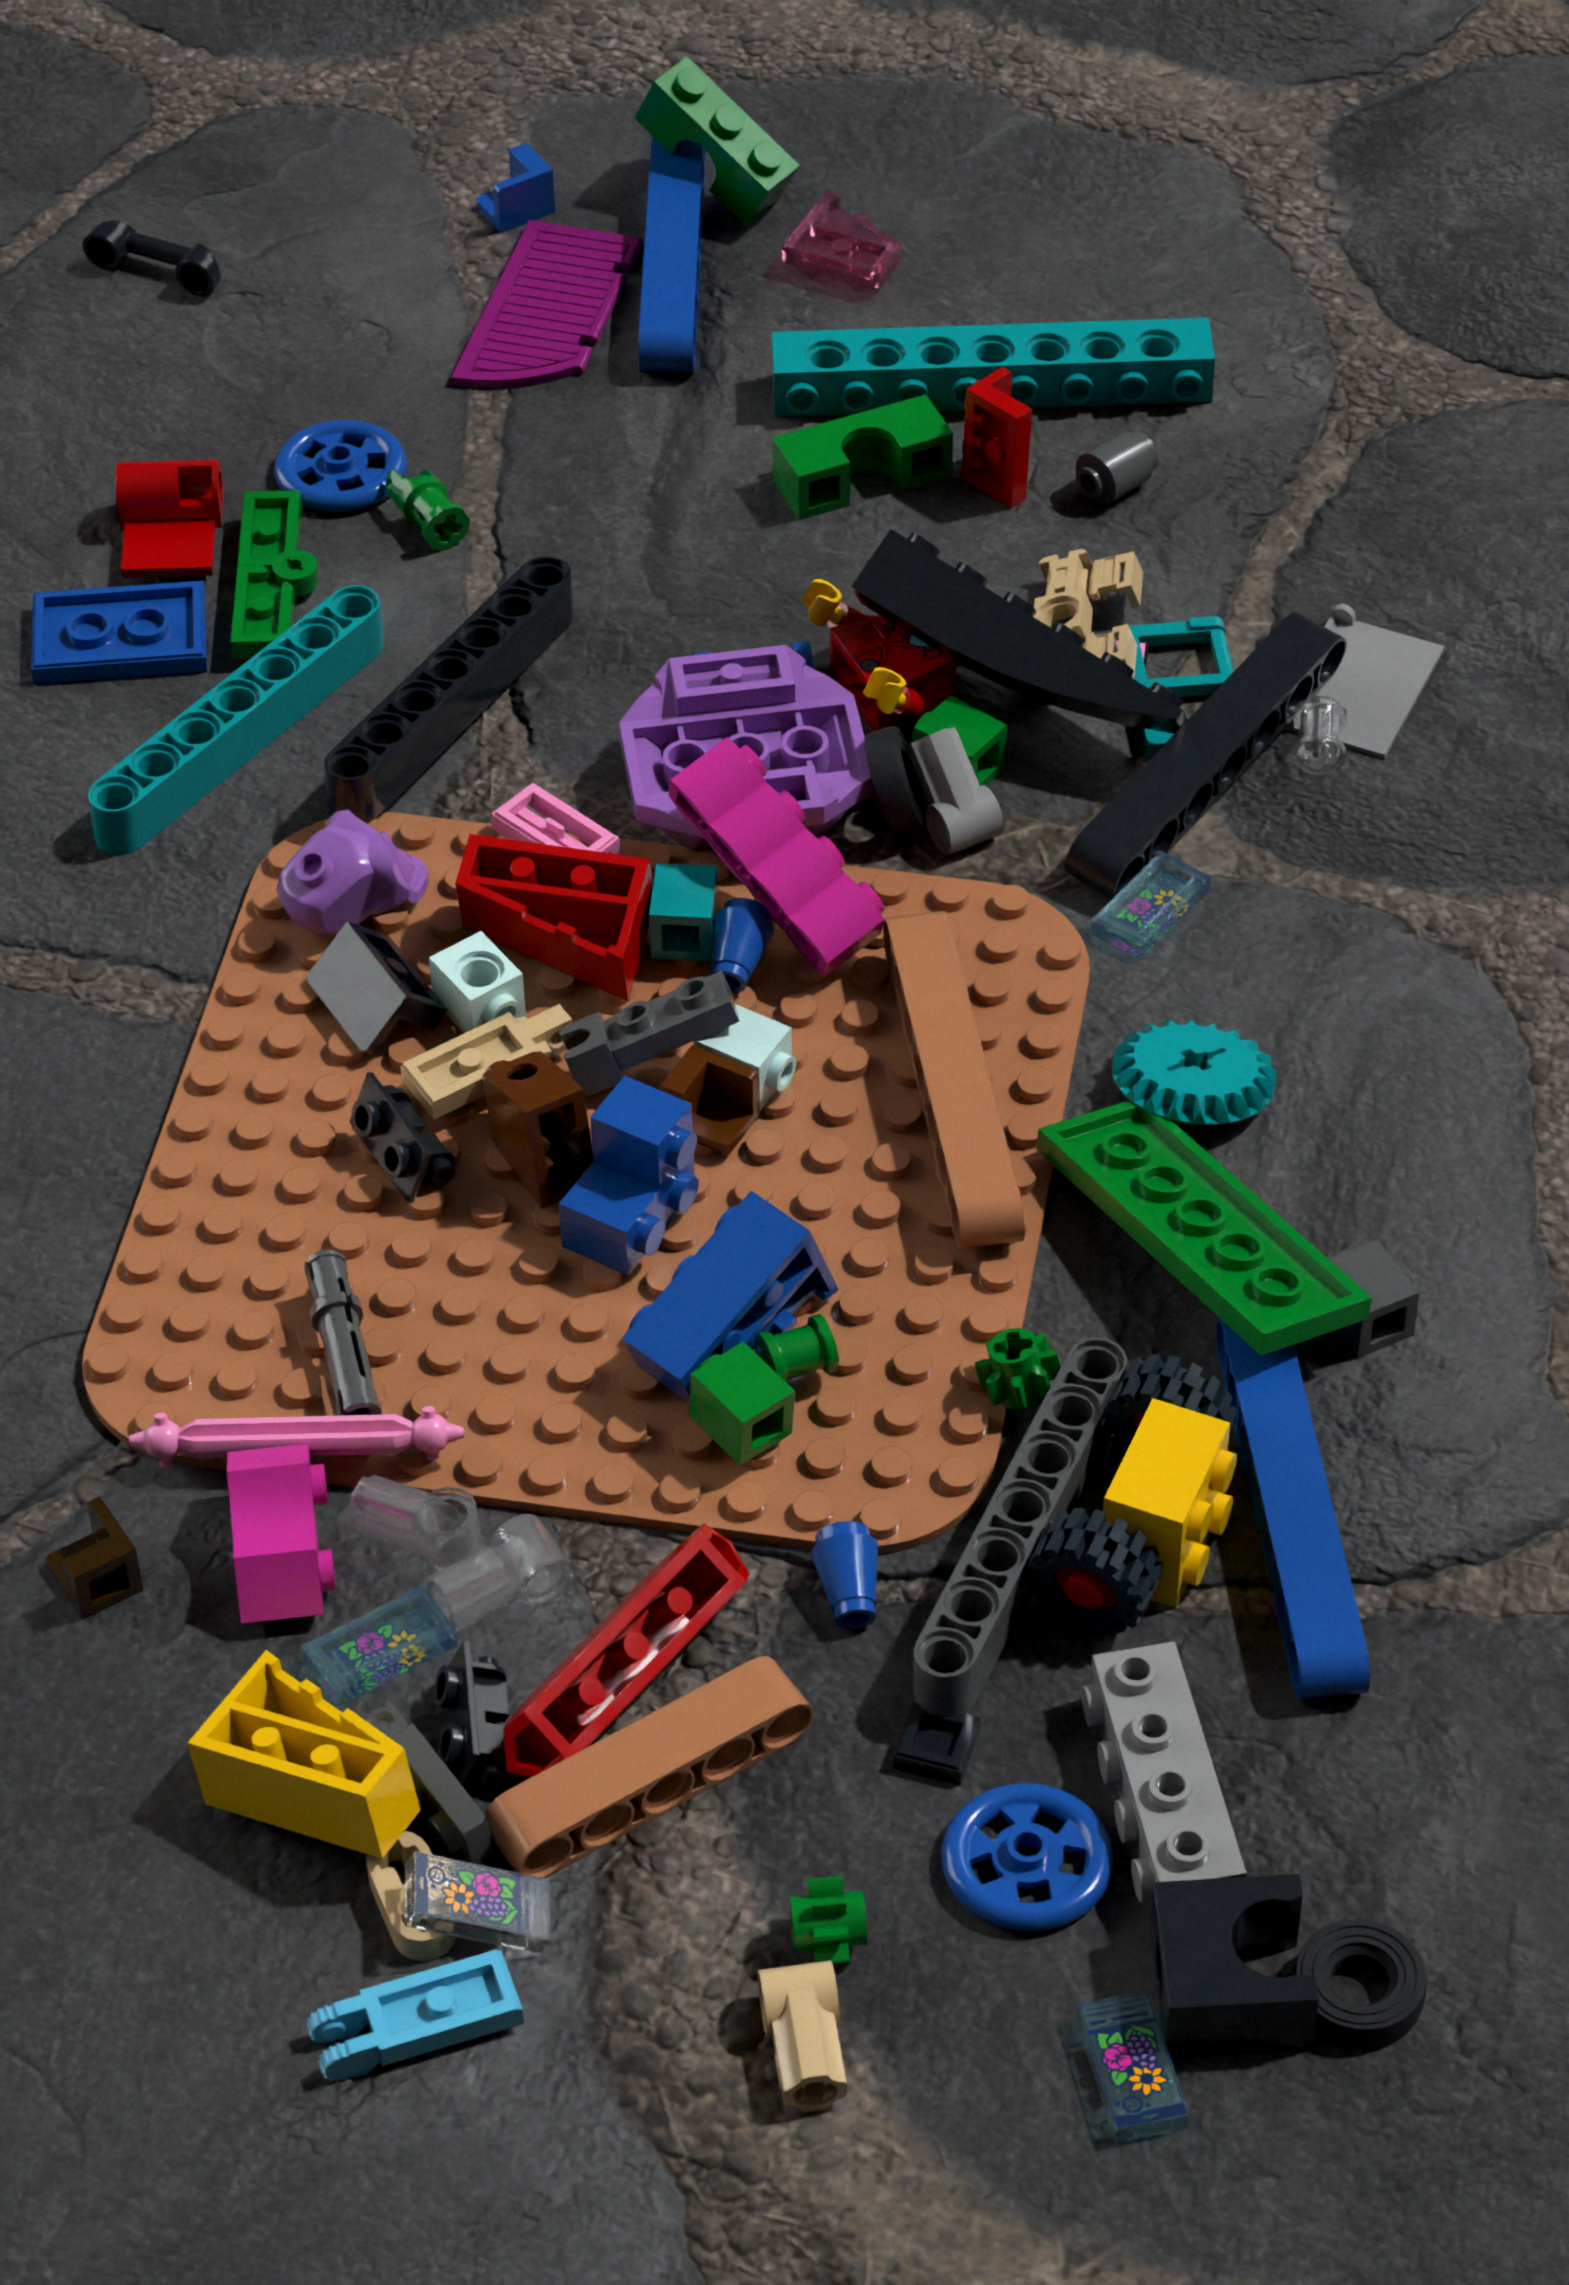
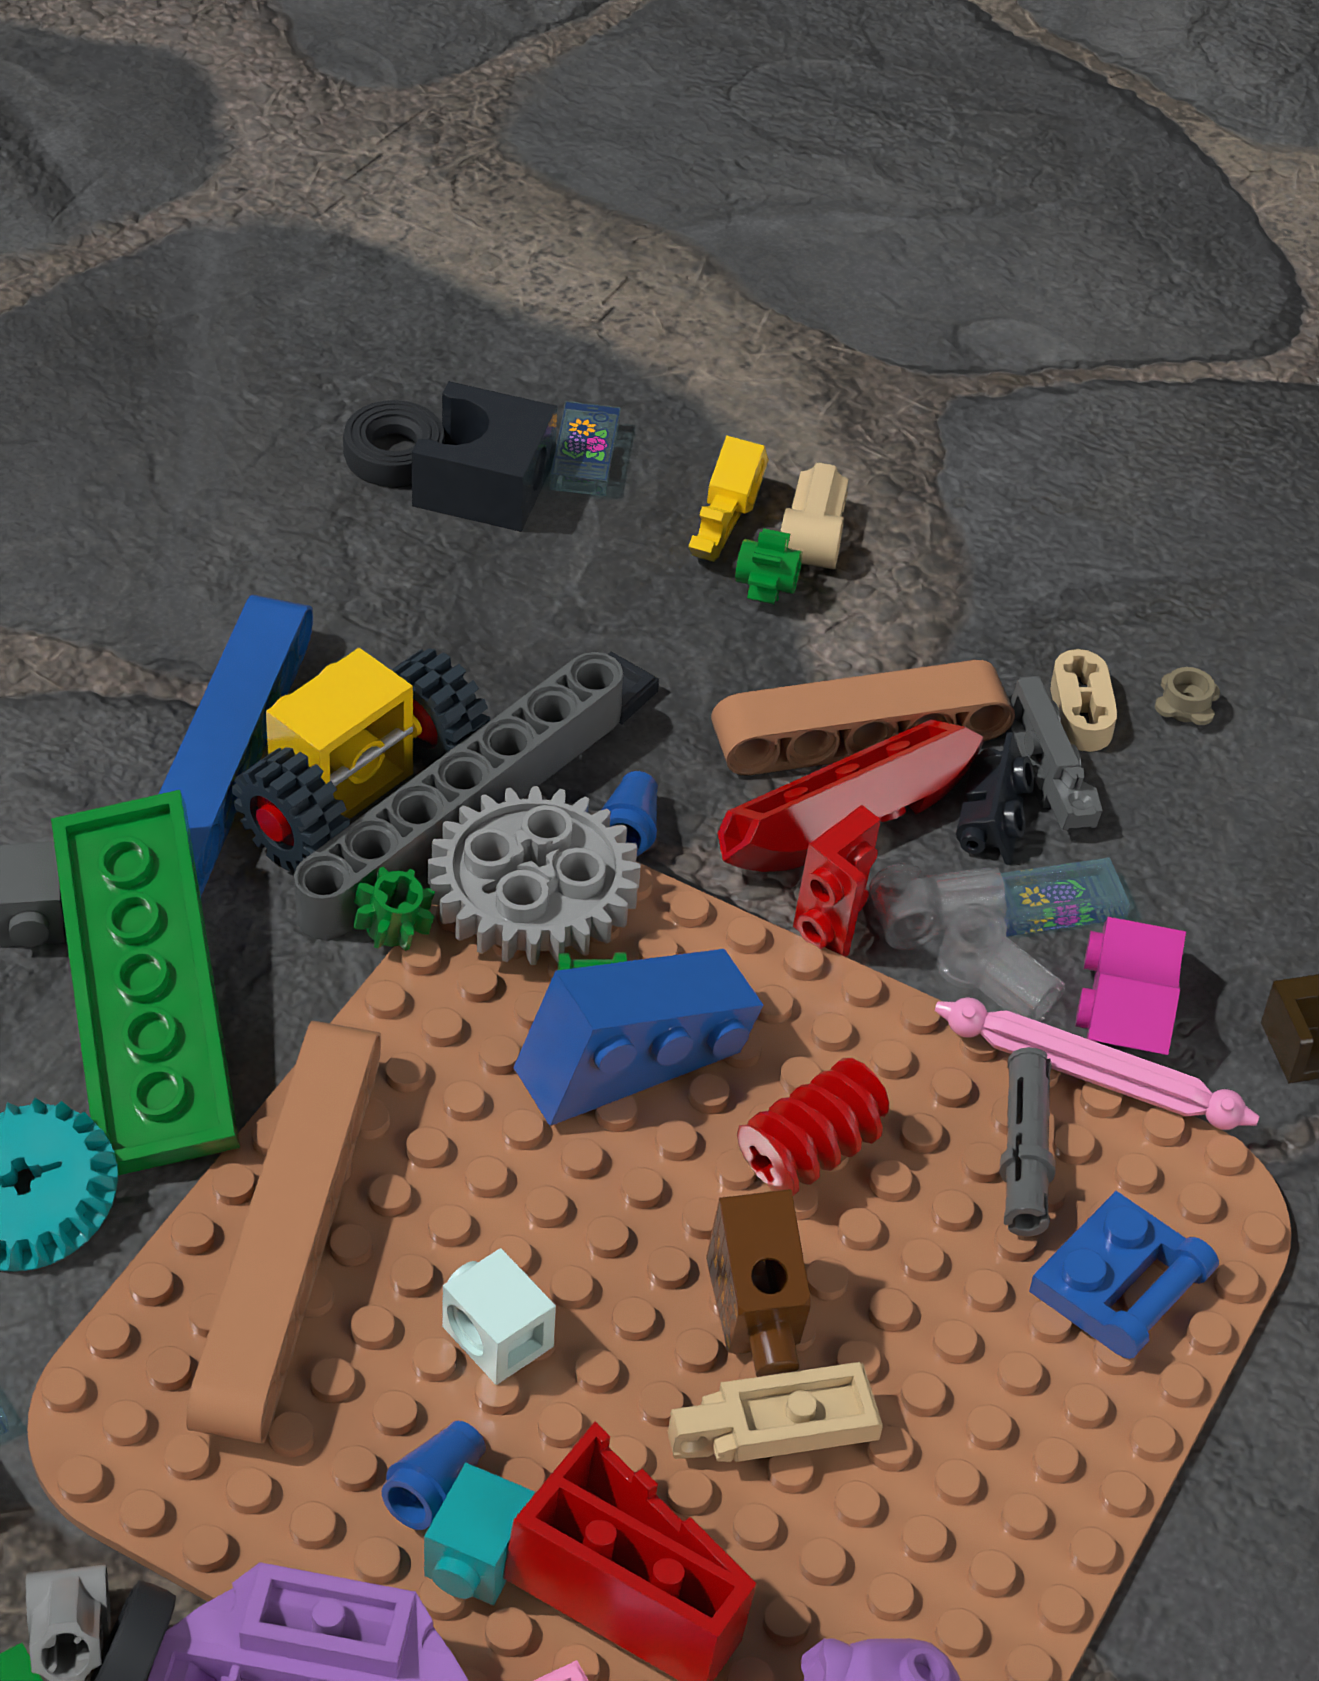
camera: 165 degrees left, 0 degrees up
(245, 1272) = (1107, 1259): none -> blue plate
(288, 1920) = (1188, 696): none -> dark tan plate
(303, 1763) = (1156, 764): yellow wedge -> none
(372, 986) = (873, 1562): panel -> none
(398, 1138) = (915, 1374): black hinge -> none
(416, 2015) = (1103, 613): medium azure hinge -> none
(476, 982) = (760, 1534): light aqua brick -> none
(477, 1902) = (1045, 652): tile -> none
(539, 1266) = (815, 1126): none -> red piece
(600, 1511) = (837, 881): none -> red bracket
(636, 1177) = (672, 1177): blue brick -> none
(645, 1030) = (592, 1345): dark grey plate -> none
(721, 1097) = (574, 1284): reddish brown panel -> none
(741, 1402) = (669, 918): green brick -> none
(776, 857) = (356, 1506): dark pink brick -> none
(903, 1437) = (534, 875): none -> light grey gear
(919, 2027) = (730, 493): none -> yellow piece
(999, 1900) = (588, 591): blue plate -> none
(1160, 1768) = (462, 574): light grey brick -> none

